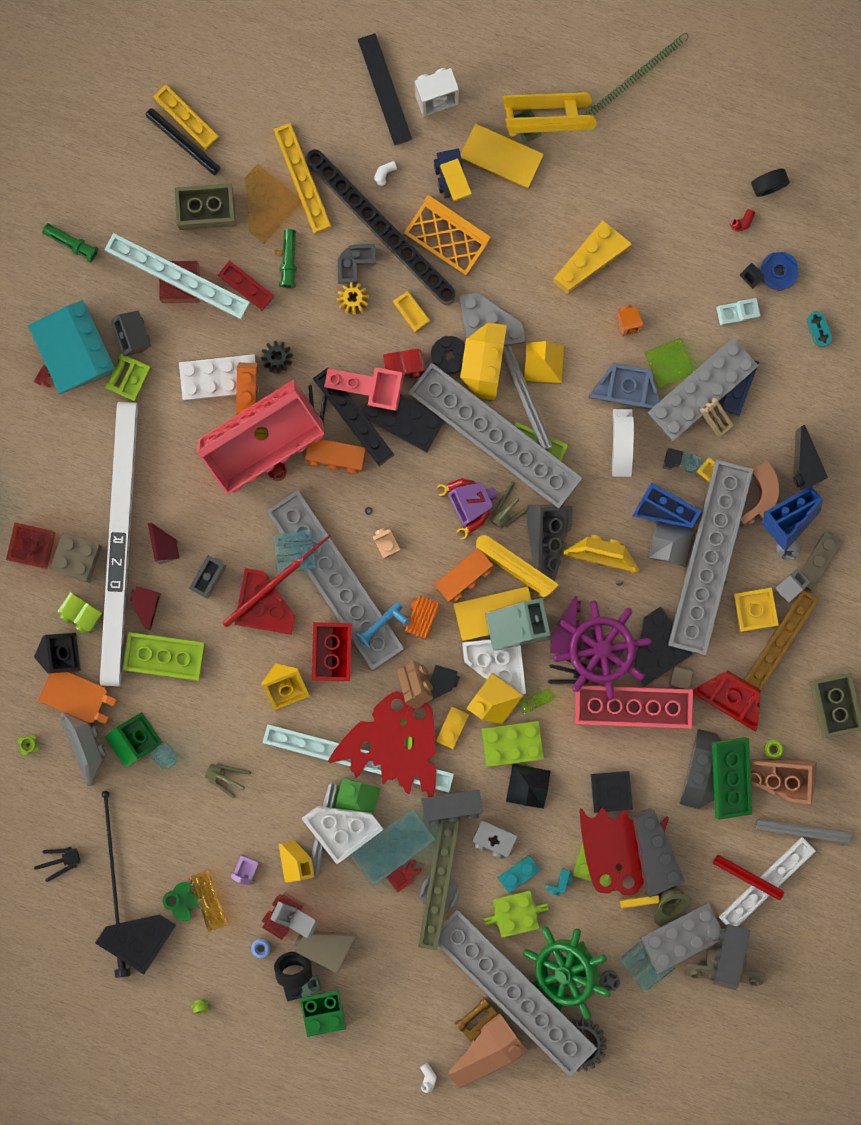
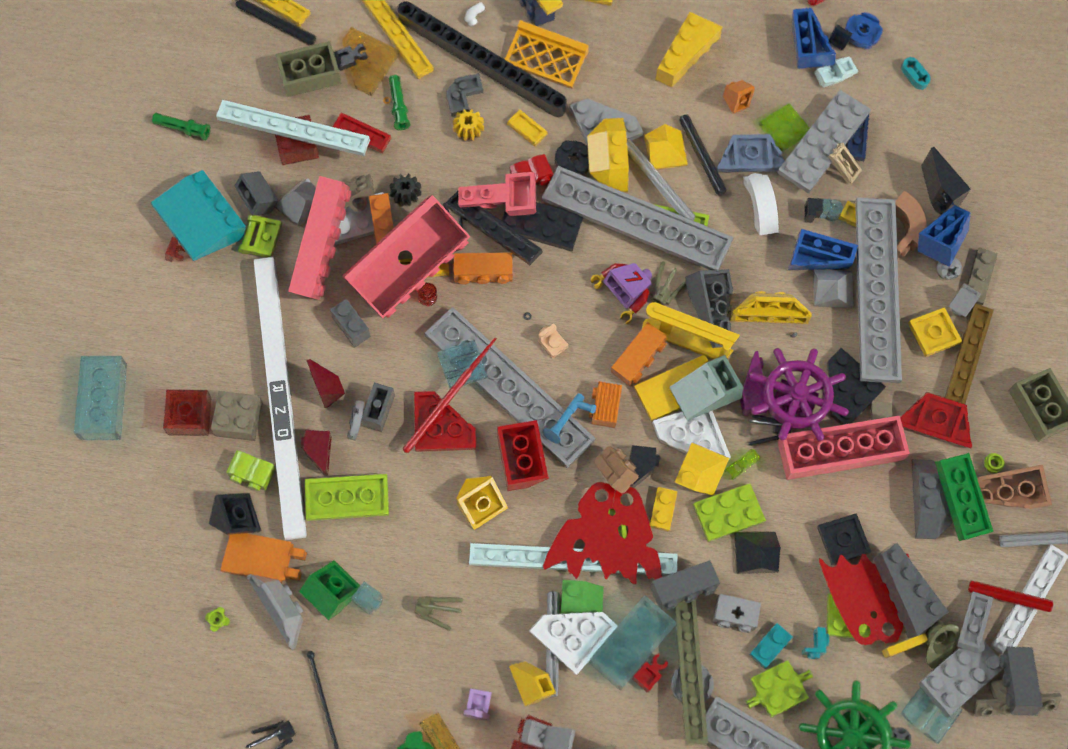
camera: 20 degrees left, 15 degrees down
(172, 350) = (297, 202): none -> light grey slope
(182, 401) = (319, 238): none -> coral brick
(184, 587) = (355, 420): none -> light grey tile
(197, 486) = (350, 323): none -> dark grey brick
(226, 354) = (360, 188): none -> dark tan plate
(246, 200) = (347, 56): none -> black plate
(579, 378) = (702, 155): none -> black axle
(708, 894) = (975, 622): none -> light grey plate
(718, 277) = (809, 40): none -> blue wedge

